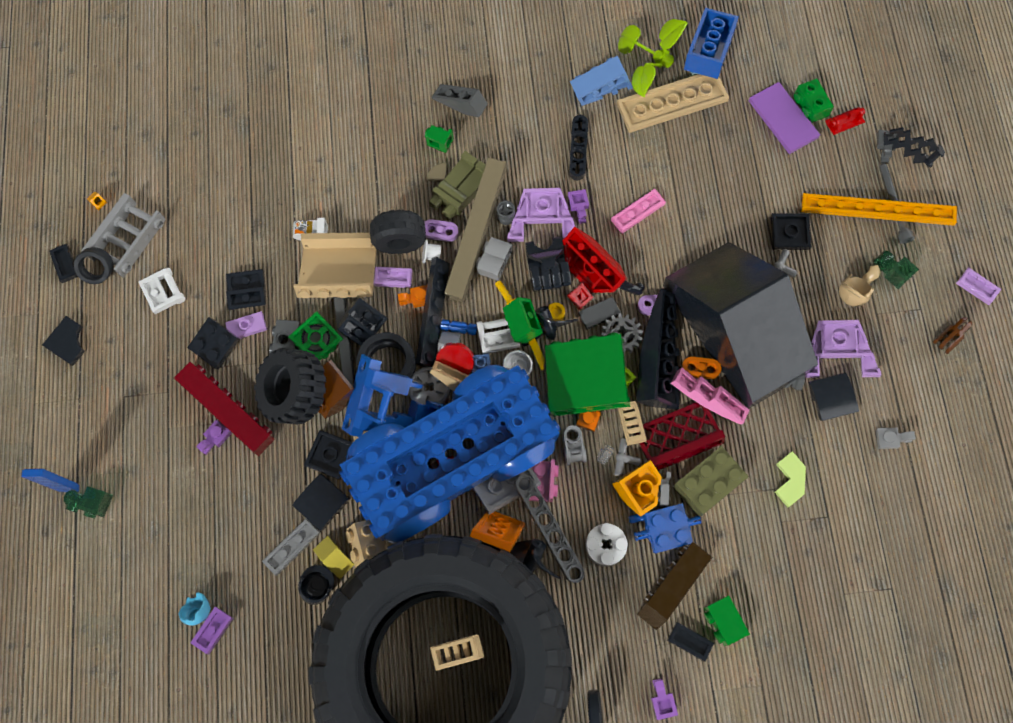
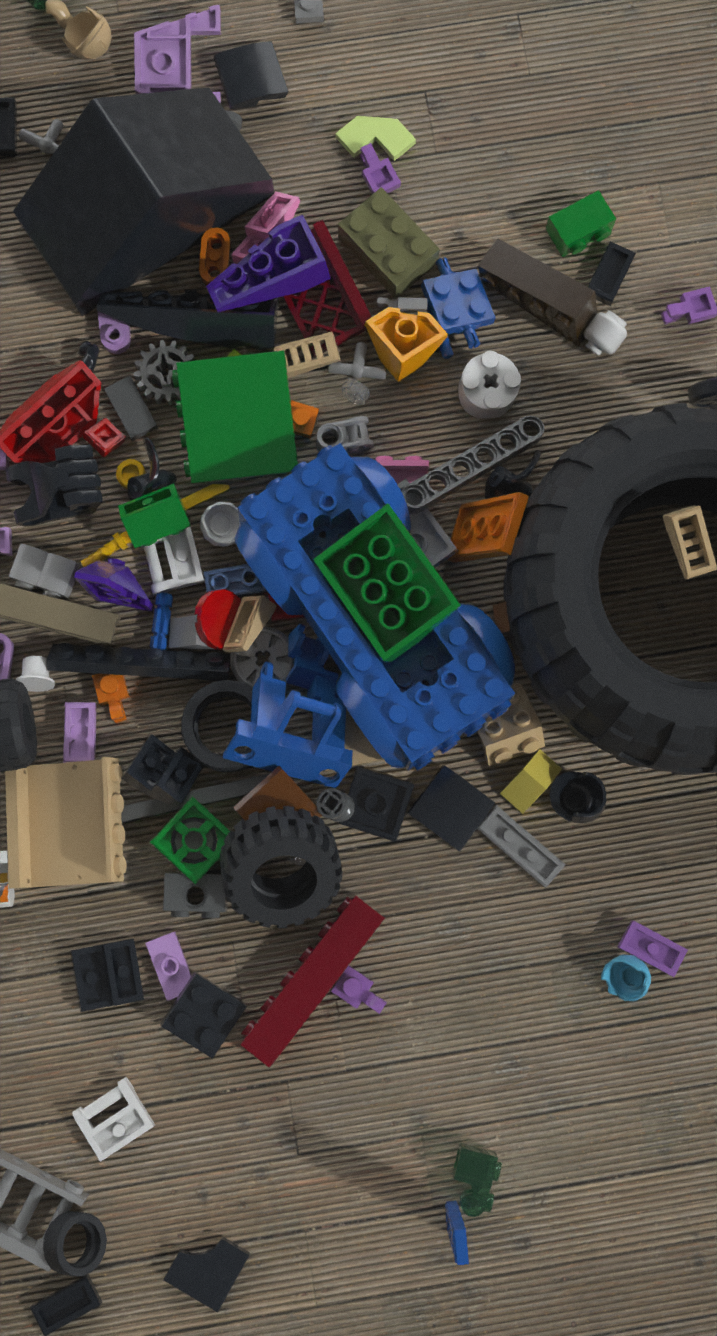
camera: 100 degrees left, 10 degrees up
(329, 426) = (340, 809): none -> dark grey wheel
(457, 454) = (387, 583): none -> green slope
(481, 294) = (113, 584): none -> dark purple wedge
(643, 632) = (605, 333): none -> white head
(690, 405) = (277, 267): none -> dark purple wedge
(761, 479) = (378, 172): none -> medium lavender plate

